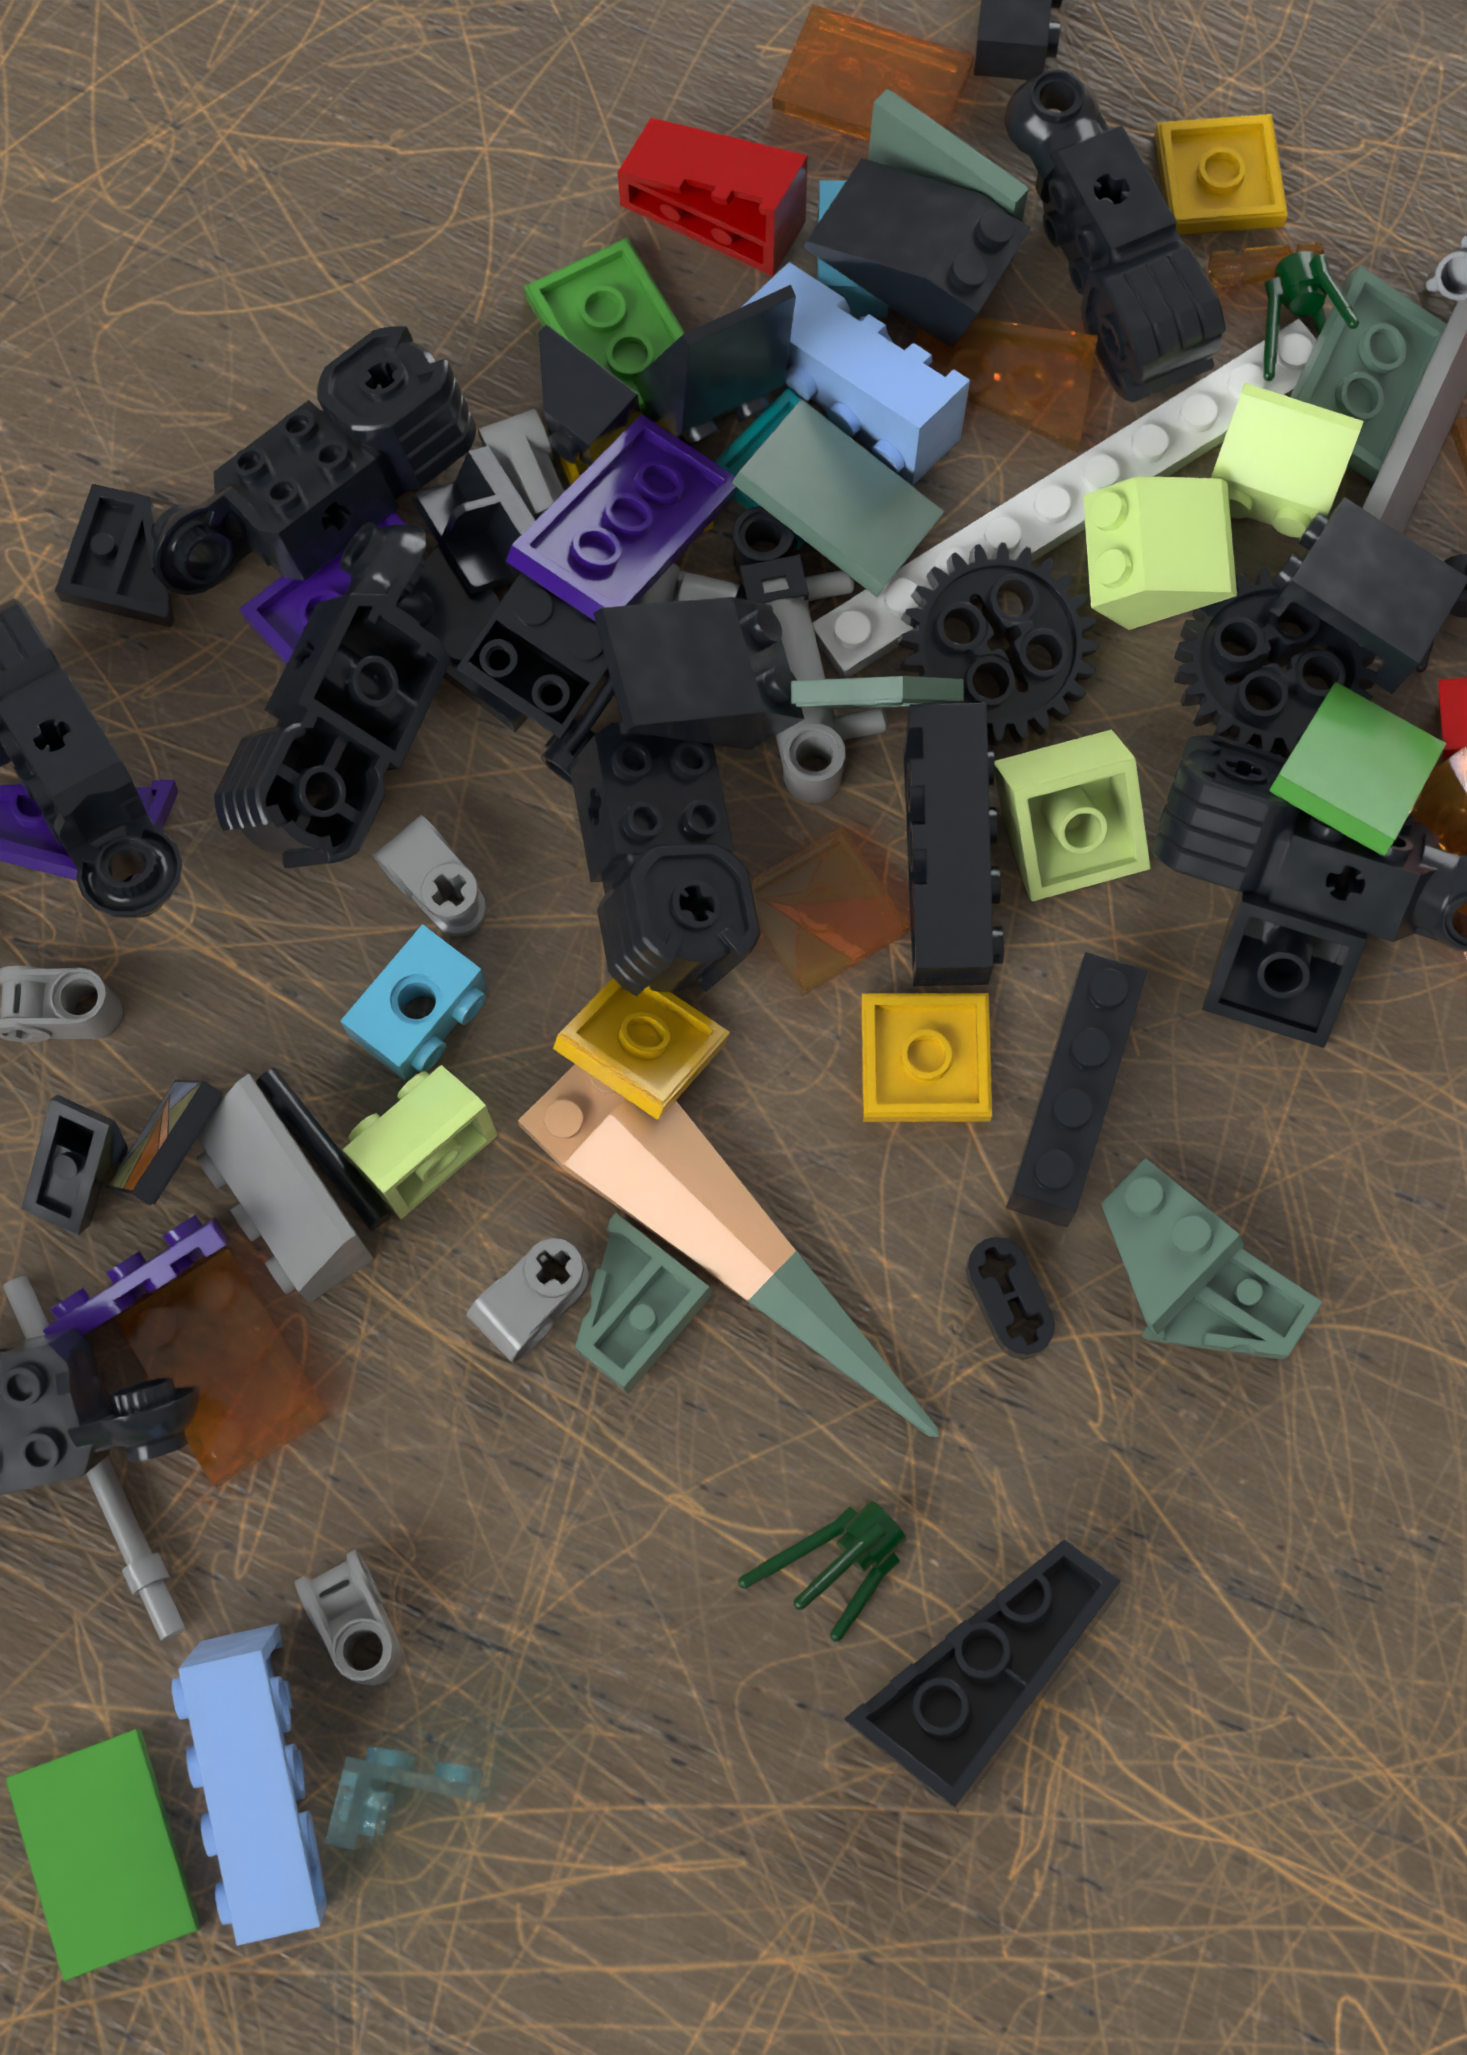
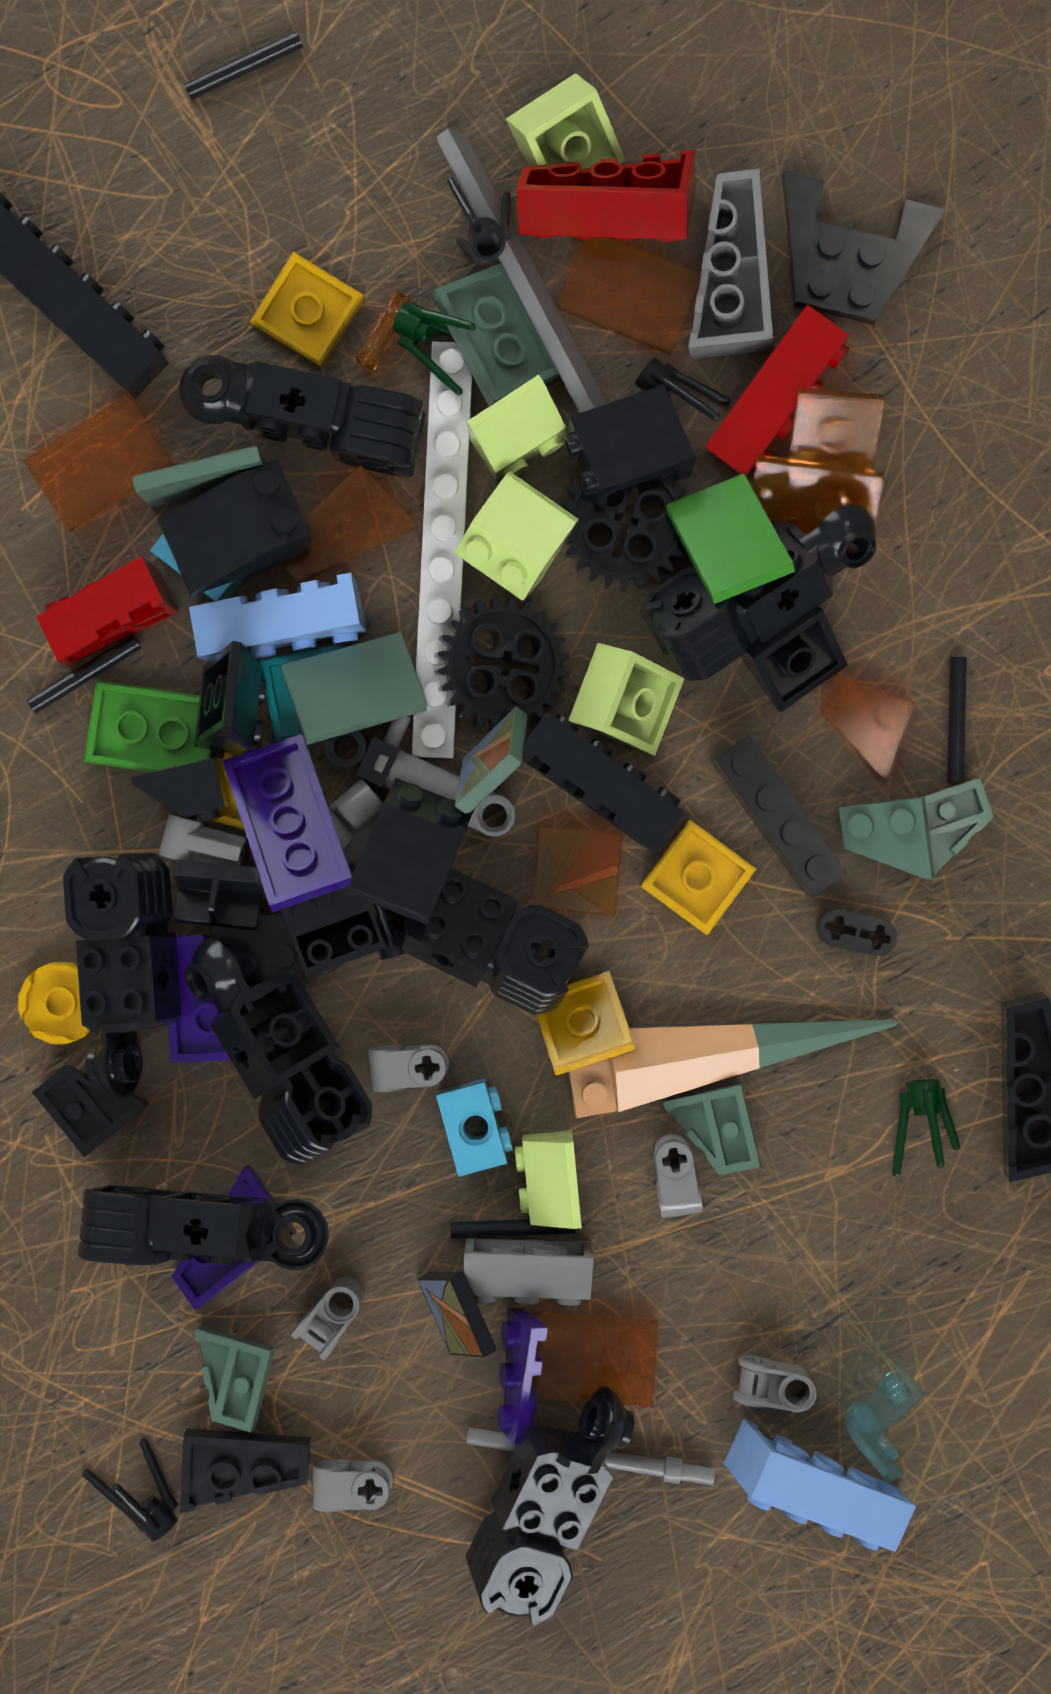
camera: 50 degrees left, 15 degrees up
(71, 1164) = (431, 1368): black slope -> none
(102, 1854) = (795, 1582): bright green tile -> none
(207, 437) = (52, 1003): none -> yellow tile
(625, 223) = (84, 673): none -> black bar
(1278, 1119) = (867, 720): none -> clear orange wing
(1370, 1226) = (956, 720): none -> black bar

